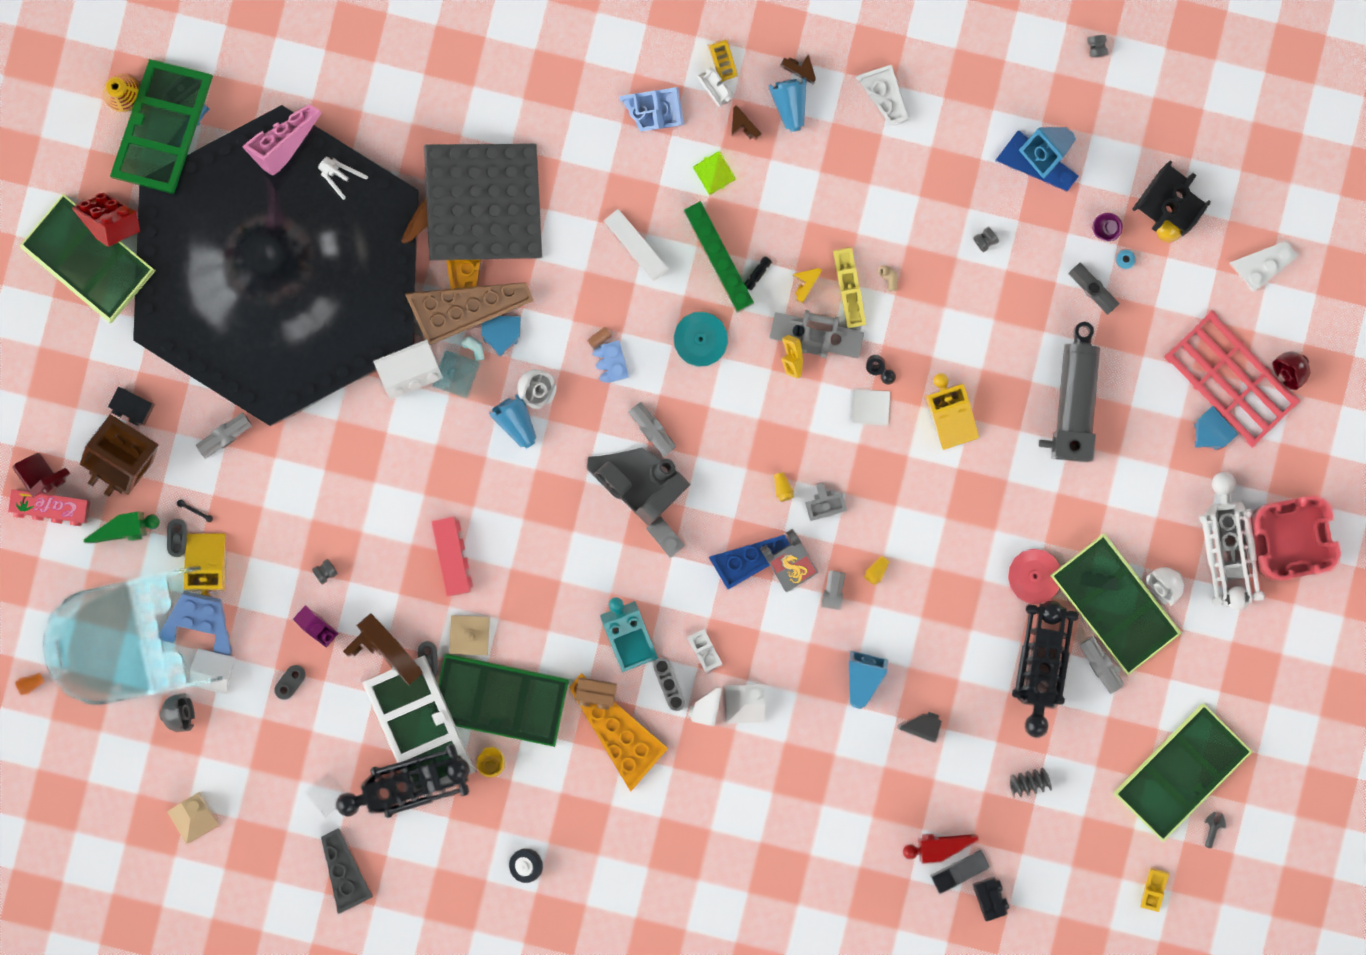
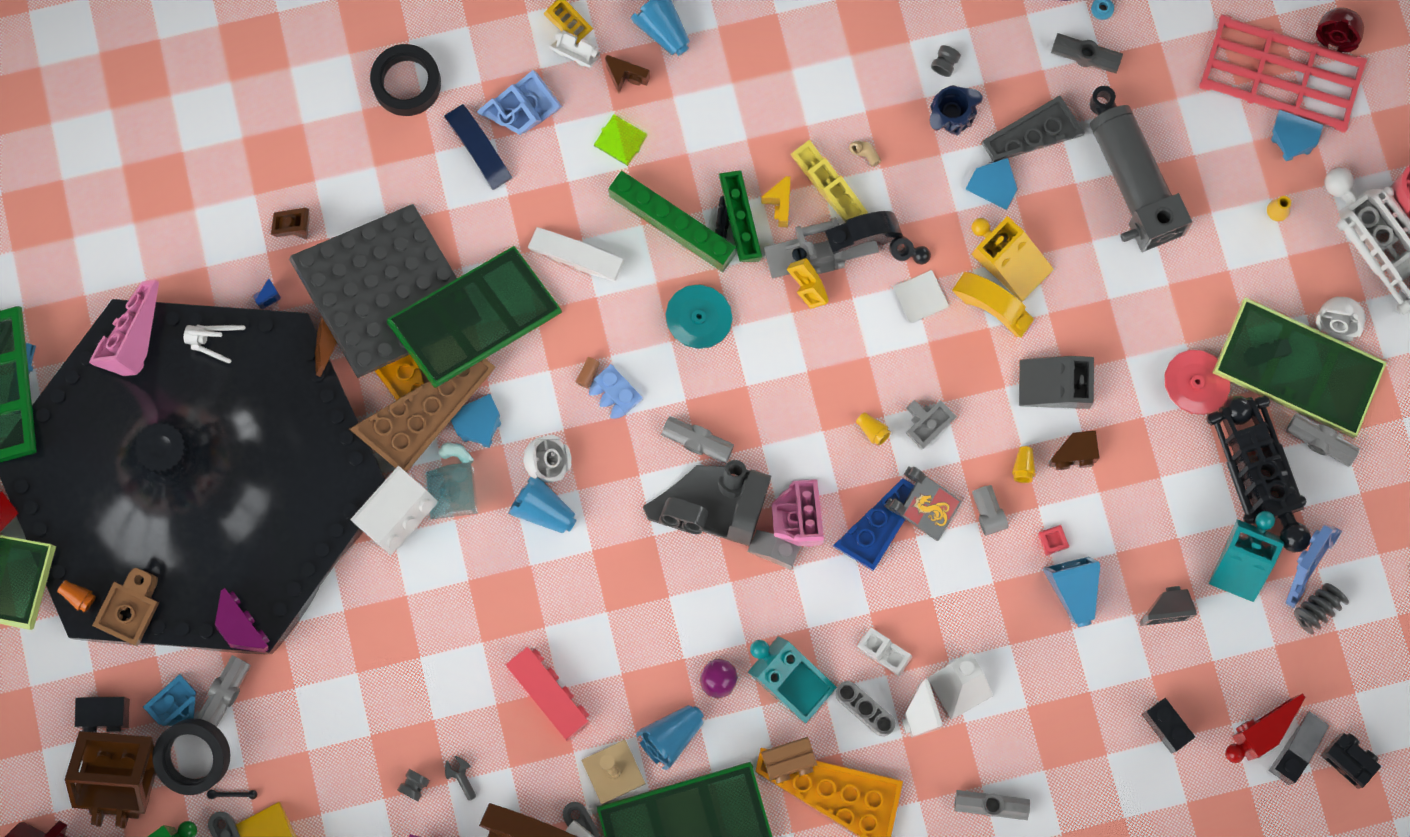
camera: 25 degrees left, 10 degrees down
(153, 315) = (77, 596): none -> orange cone
(161, 483) = (171, 777): none -> black tyre
(184, 425) = (173, 703): none -> dark azure slope
(192, 336) = (131, 595): none -> medium nougat plate
(256, 396) = (237, 625): none -> magenta slope
(360, 583) = (461, 777): none -> dark grey bar
(395, 157) = (267, 295): none -> blue slope
(439, 112) = (291, 223): none -> reddish brown slope
(522, 631) = (670, 735): none -> dark azure cone
(537, 255) = (474, 316): none -> clear green door
(577, 608) = (718, 678): none -> magenta hair
(578, 21) = (397, 54): none -> black tyre
(606, 123) = (478, 146): none -> dark blue slope
(694, 522) = (798, 514): none -> bright pink wedge
(731, 805) = (1007, 806): none -> light grey piece
(770, 279) = (740, 216): none -> green slope
(853, 340) = (869, 227): none -> black arch
(868, 635) = (1053, 540): none -> coral tile
(875, 808) = (1168, 725): none -> black brick
(920, 441) = (994, 299): none -> yellow arch
(921, 579) = (1078, 449): none -> reddish brown slope
(932, 523) = (1057, 382): none -> dark grey slope
(969, 281) = (954, 109): none -> dark blue piece
(971, 351) = (994, 183): none -> dark azure slope
(997, 721) = (1245, 560): none -> teal slope
(1025, 327) = (1038, 129): none -> dark grey wing
(1037, 747) = (1310, 559): none -> medium blue wing
(1163, 480) = (1279, 208): none -> yellow cone

